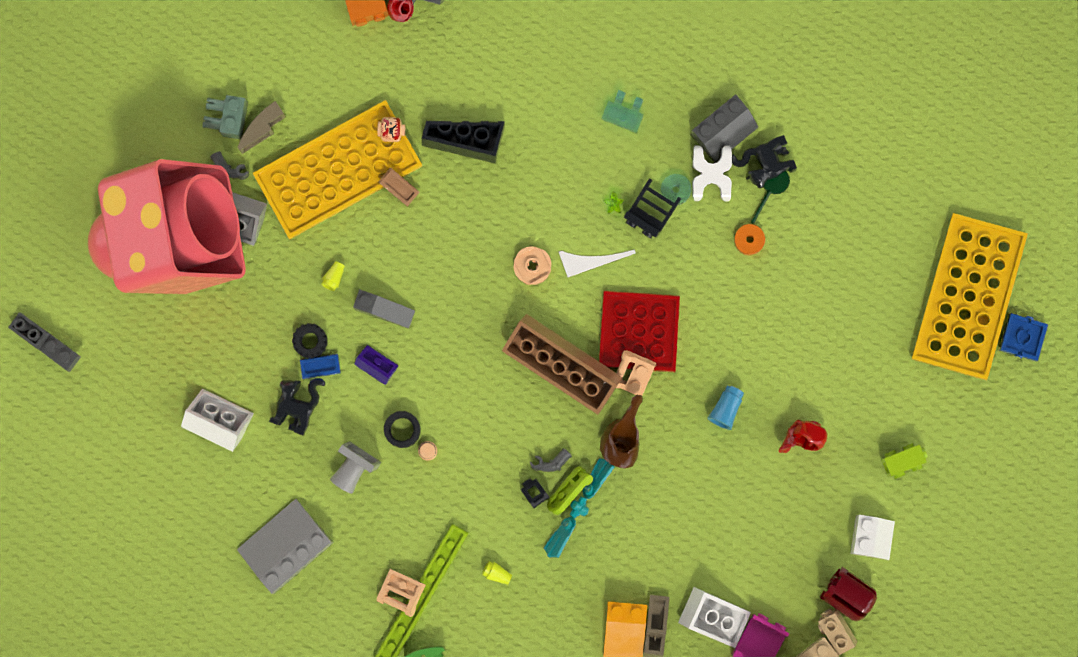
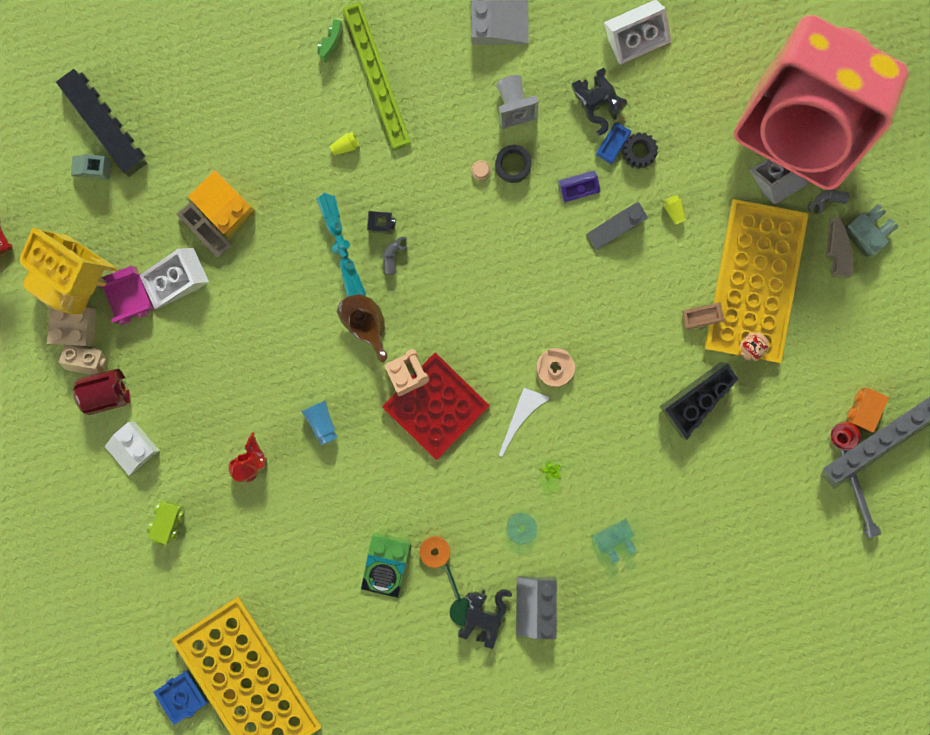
camera: 125 degrees right, 5 degrees up
(403, 586) = (393, 66): light nougat plate -> none
(562, 364) = (459, 324): medium nougat brick -> none
(569, 490) = (360, 249): lime plate -> none
(638, 217) = (518, 482): black plate -> none
(711, 173) = (510, 567): white piece -> none
(791, 267) = (385, 565): none -> slope

